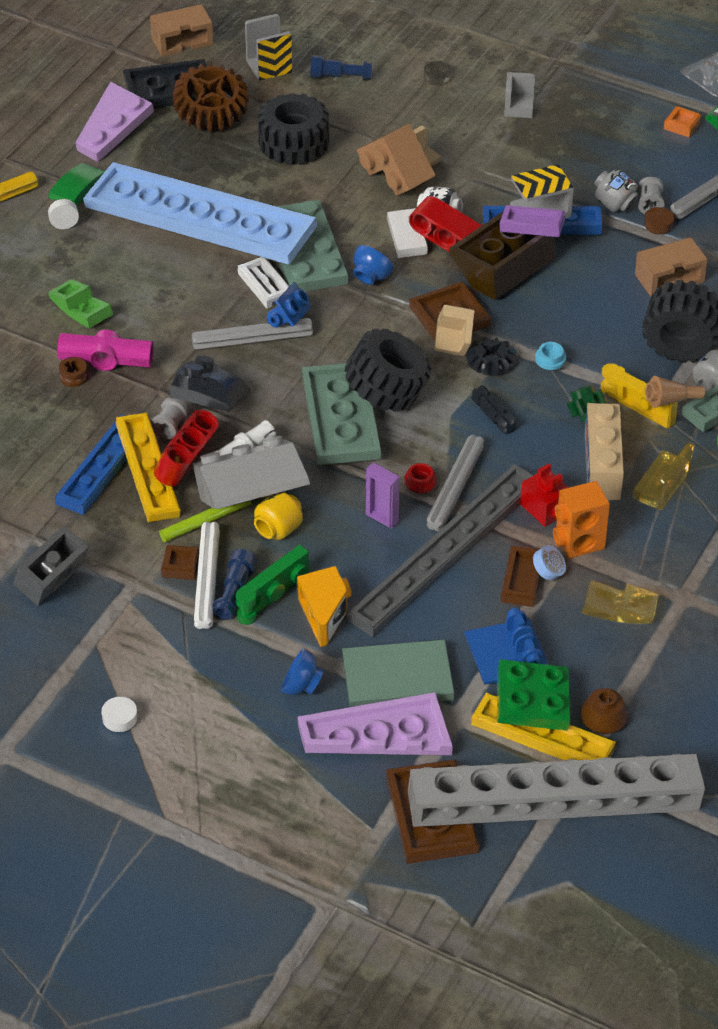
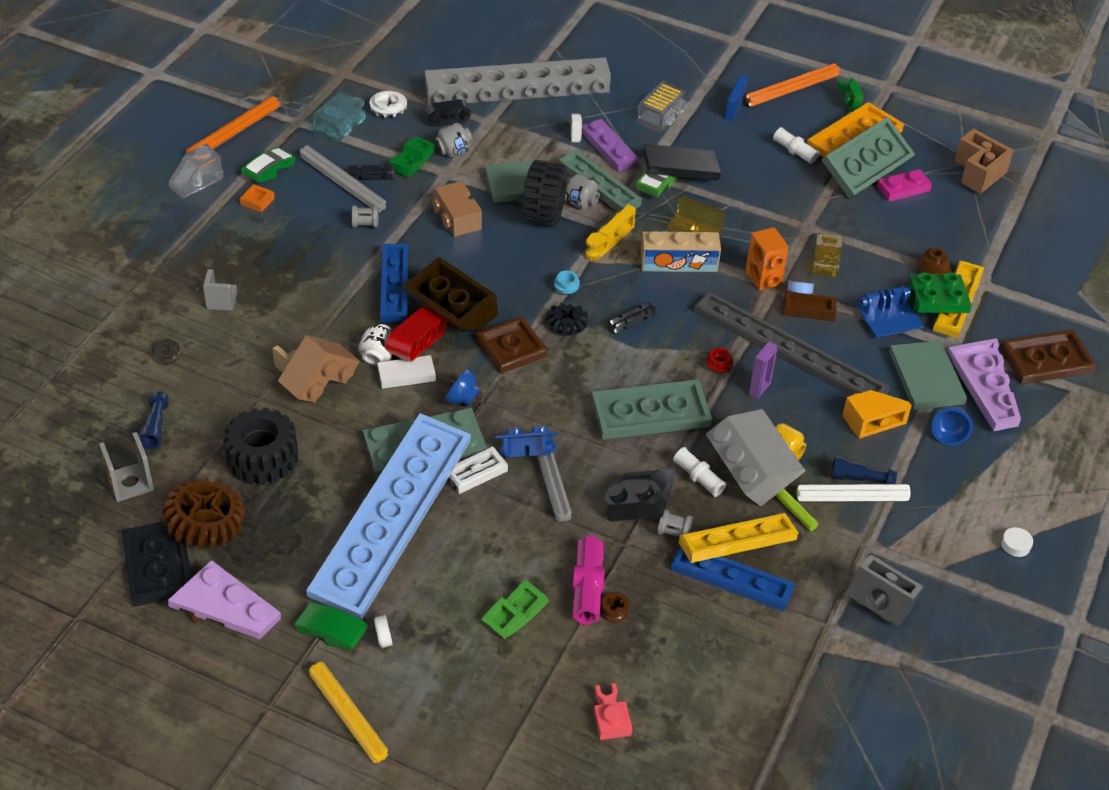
camera: 95 degrees left, 0 degrees up
(180, 562) = (840, 513): reddish brown tile -> none
(181, 29) = (69, 549): medium nougat brick -> none
(186, 448) = (723, 502): red beam -> none
(271, 584) = (860, 445): green plate -> none
(388, 369) = (614, 367): black tyre -> none
(454, 330) = (550, 331): tan panel -> none
(455, 483) = (714, 339): light grey axle -> none
(532, 221) = (431, 267): medium lavender tile -> none
(541, 494) = (734, 283): red brick -> none
(544, 189) = (385, 266): piece -> none
(555, 789) = (1024, 287): light grey brick -> none
(581, 398) = (627, 259): dark green gear -> none
(615, 190) = (362, 233): light grey head -> none
(659, 220) = (391, 217): reddish brown tile -> none
(664, 391) = (631, 204): medium nougat cone -> none

